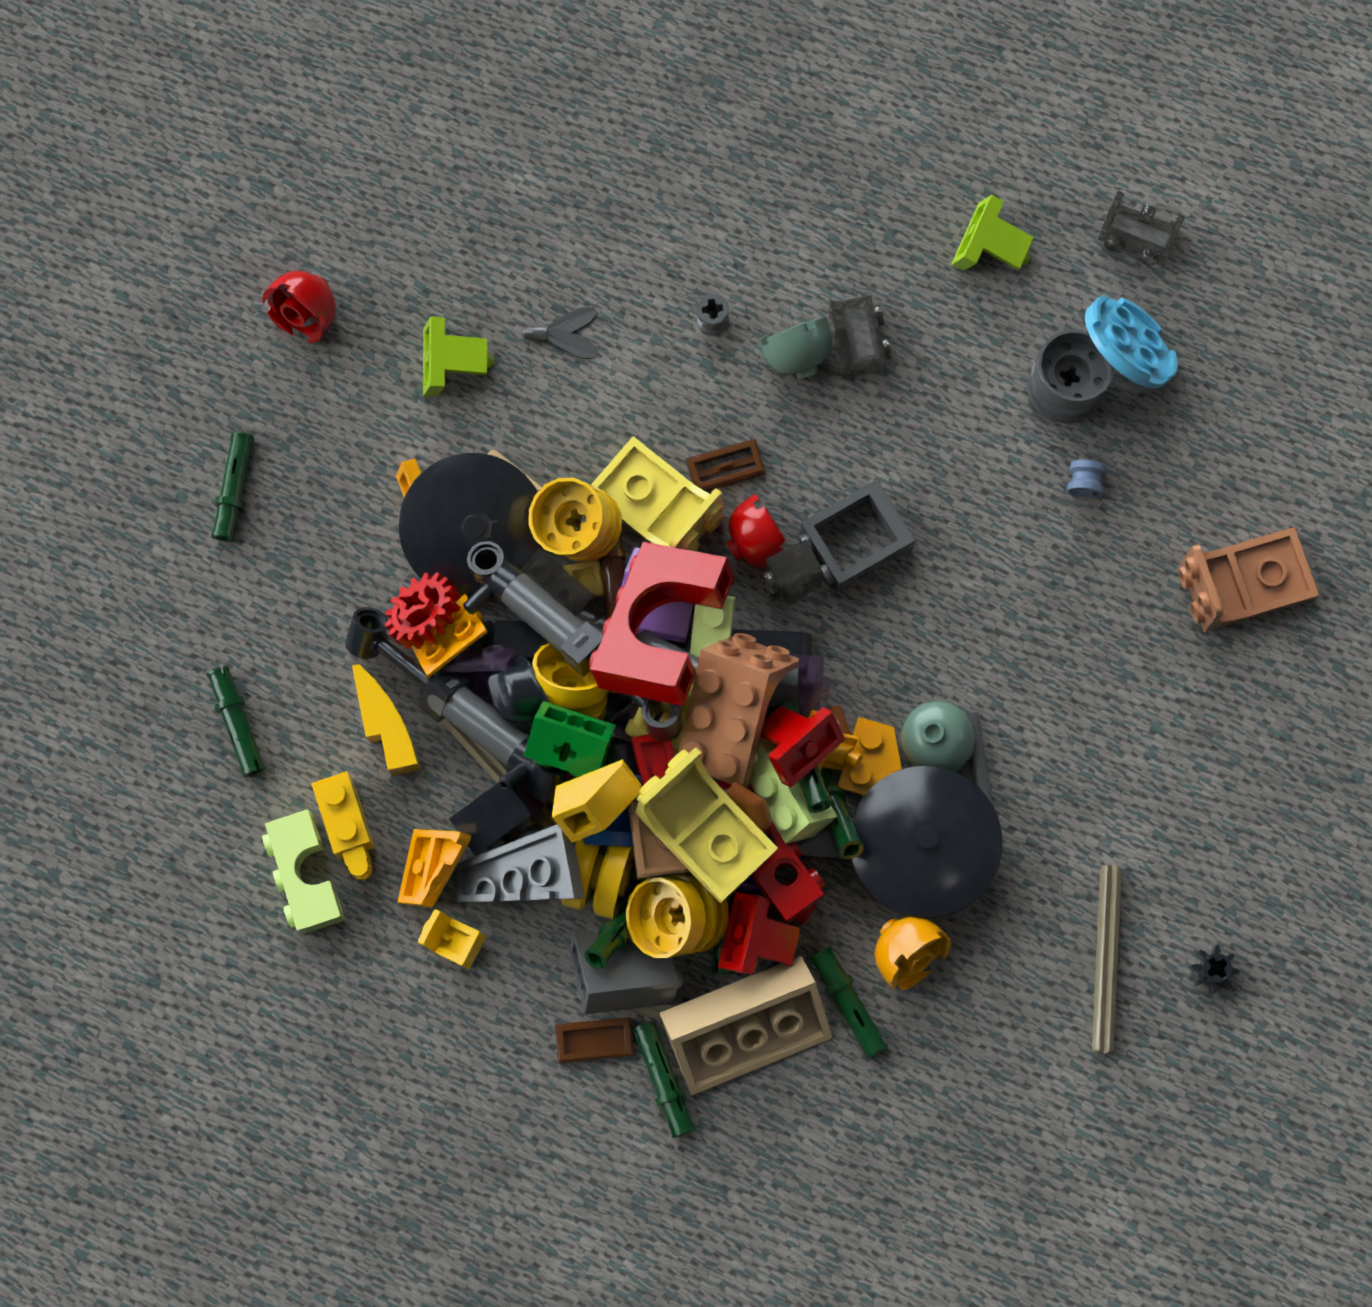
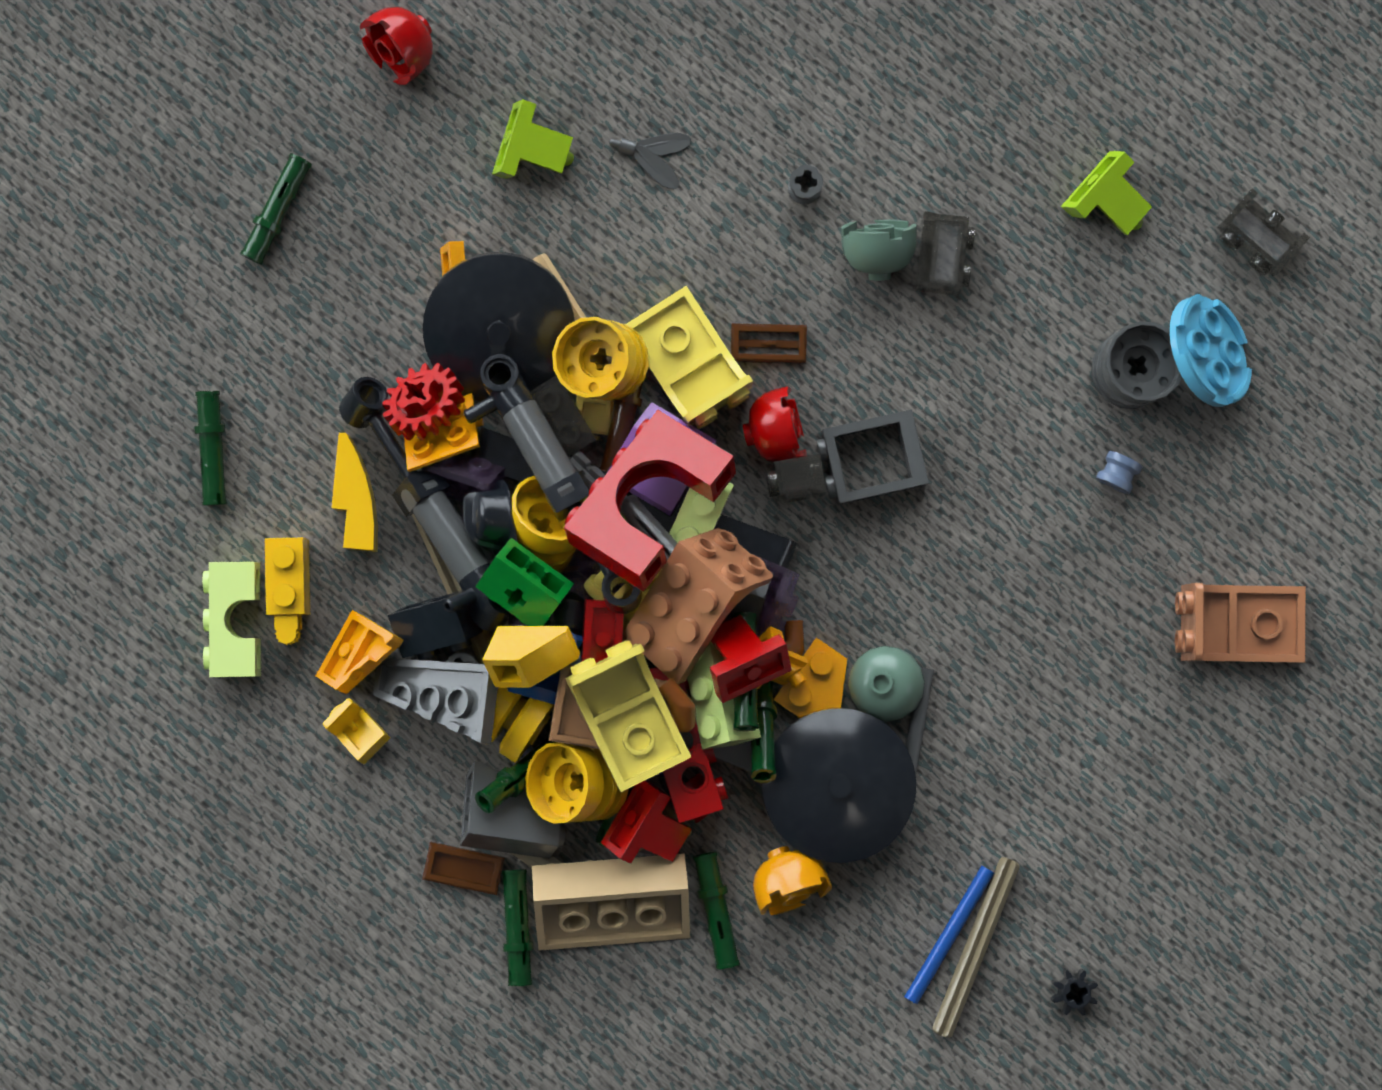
camera: 10 degrees right, 10 degrees up
(1077, 955) = (949, 934): none -> blue bar

